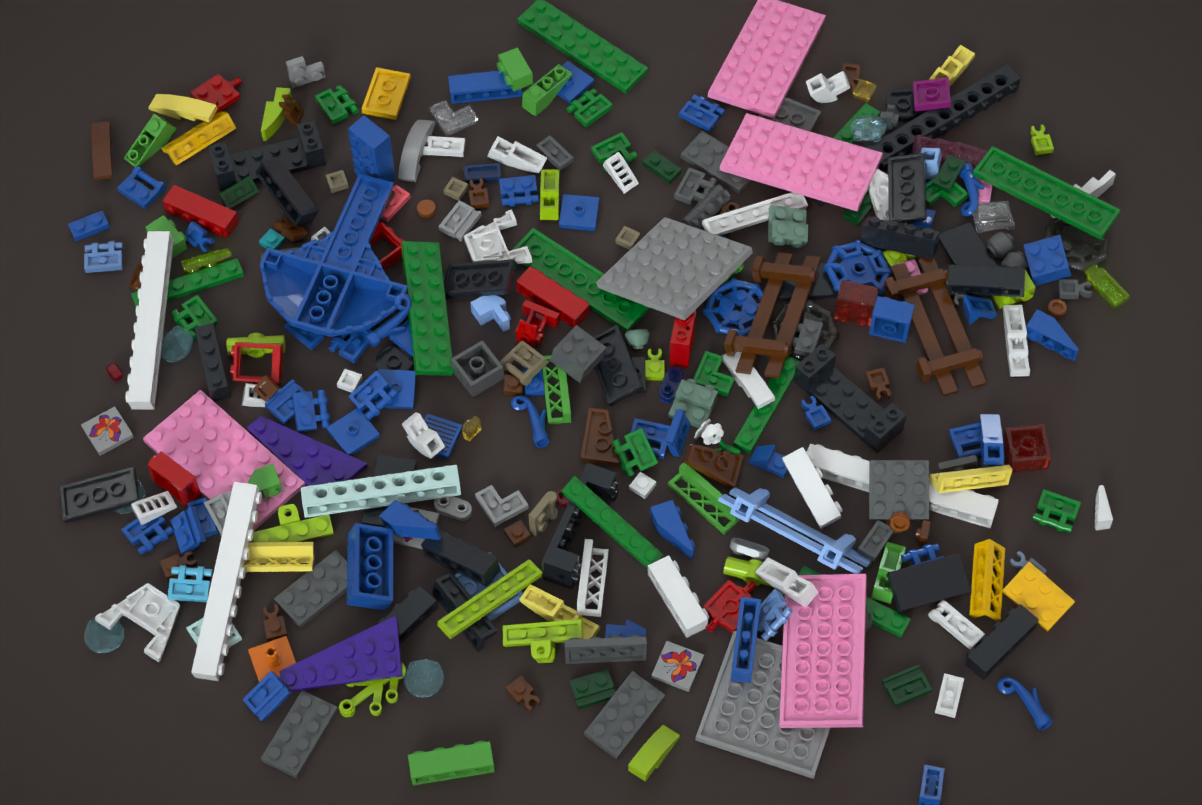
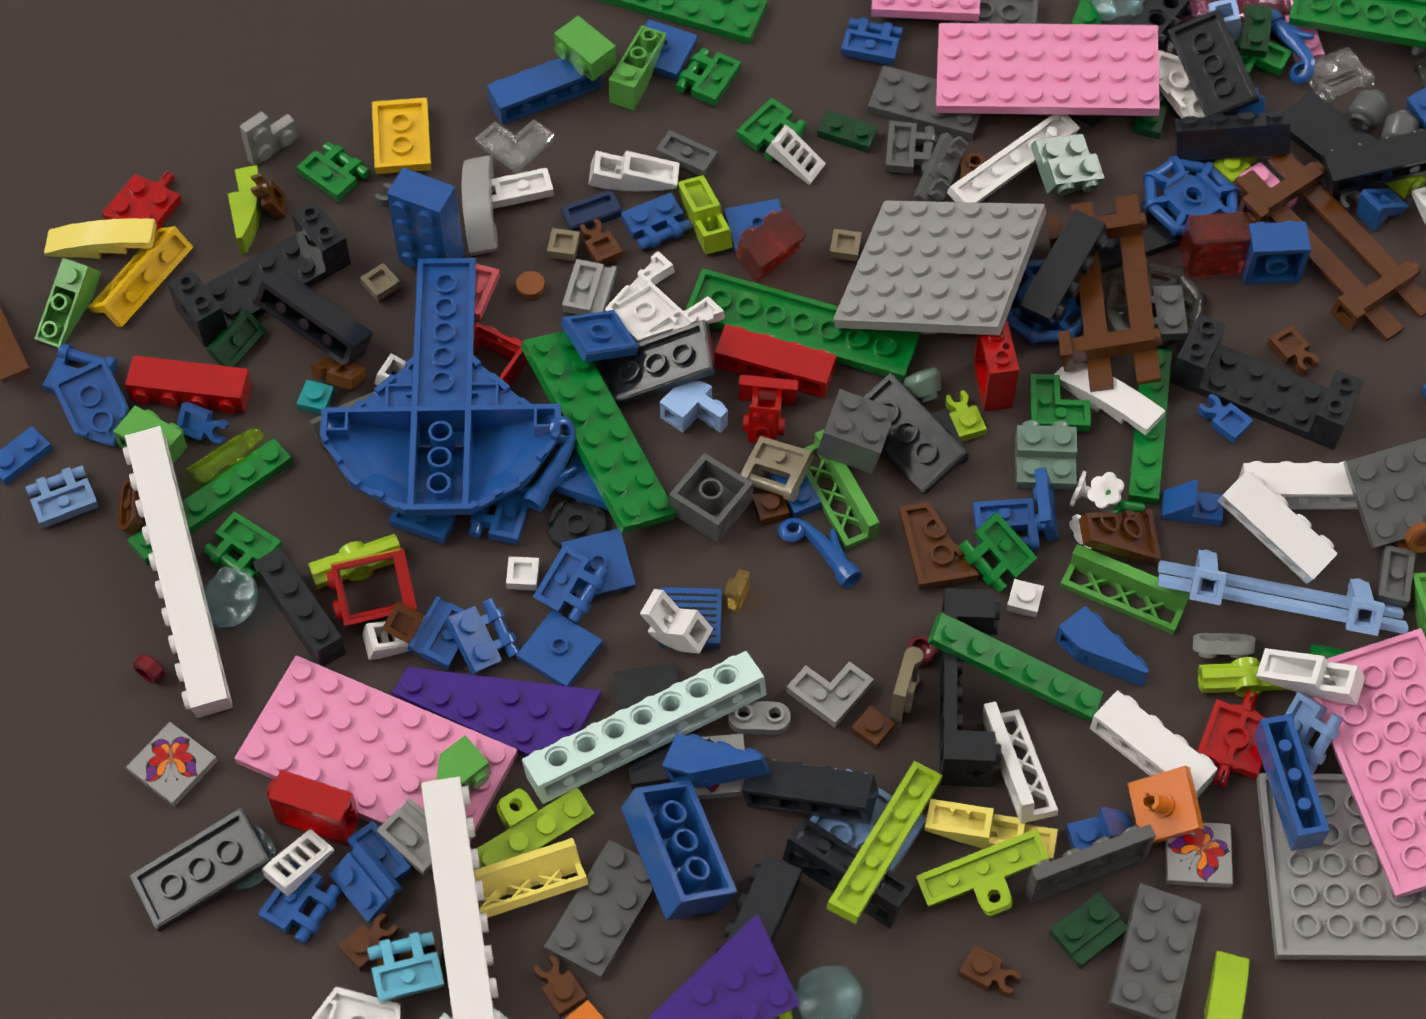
camera: 20 degrees left, 0 degrees up
(140, 205) = (92, 401): none -> blue tile
(450, 251) = (599, 336): none -> blue plate
(577, 224) = (770, 243): none -> clear red brick
(667, 631) = (1167, 804): none -> orange tile
(671, 383) = (1000, 435): clear blue plate -> none
(750, 291) = (1063, 269): none -> black brick

